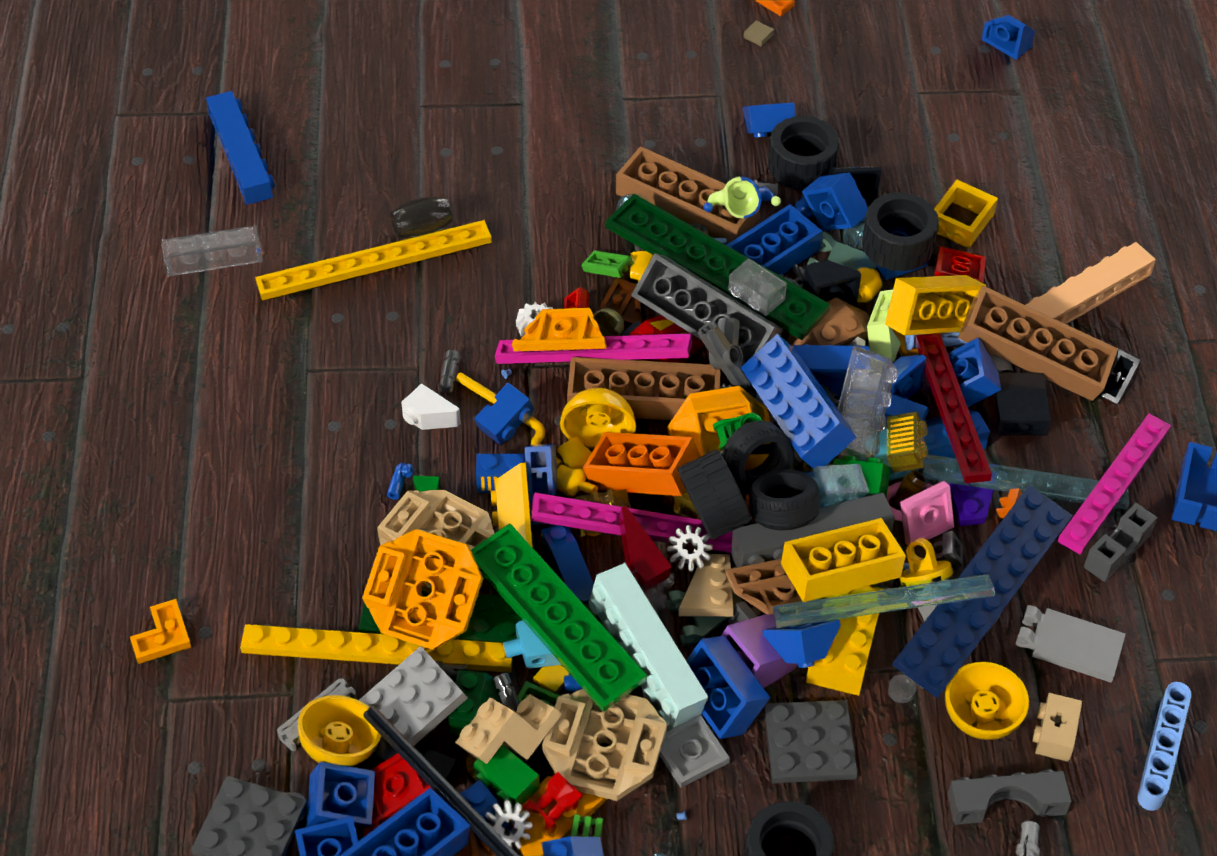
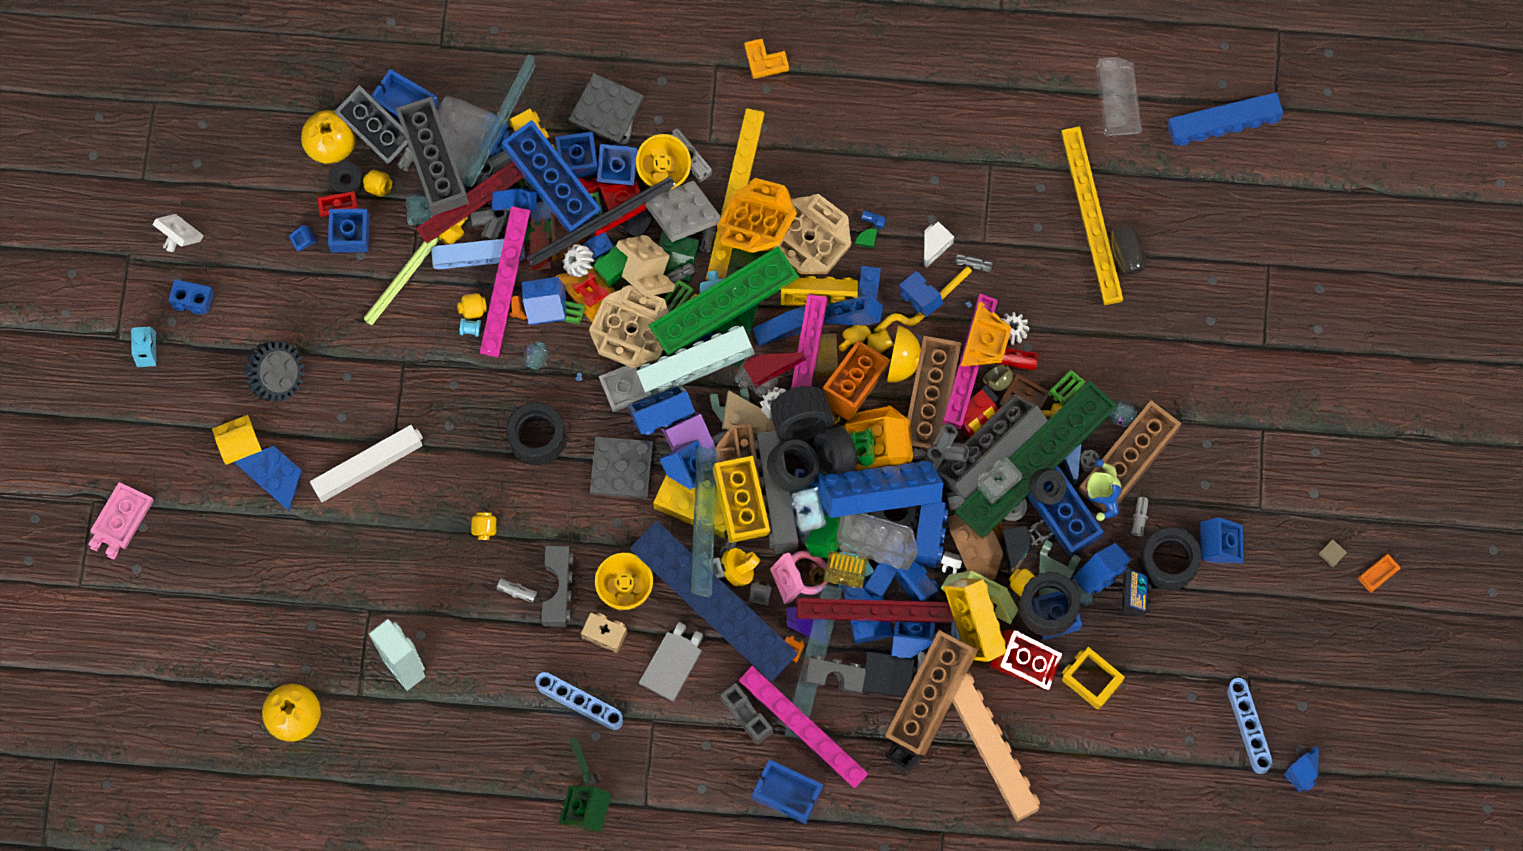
camera: 100 degrees right, 20 degrees up
(752, 245) = (1037, 482): none -> black tyre
(975, 82) = (1249, 716): none -> light blue beam
(1037, 446) = (850, 676): none -> dark grey arch

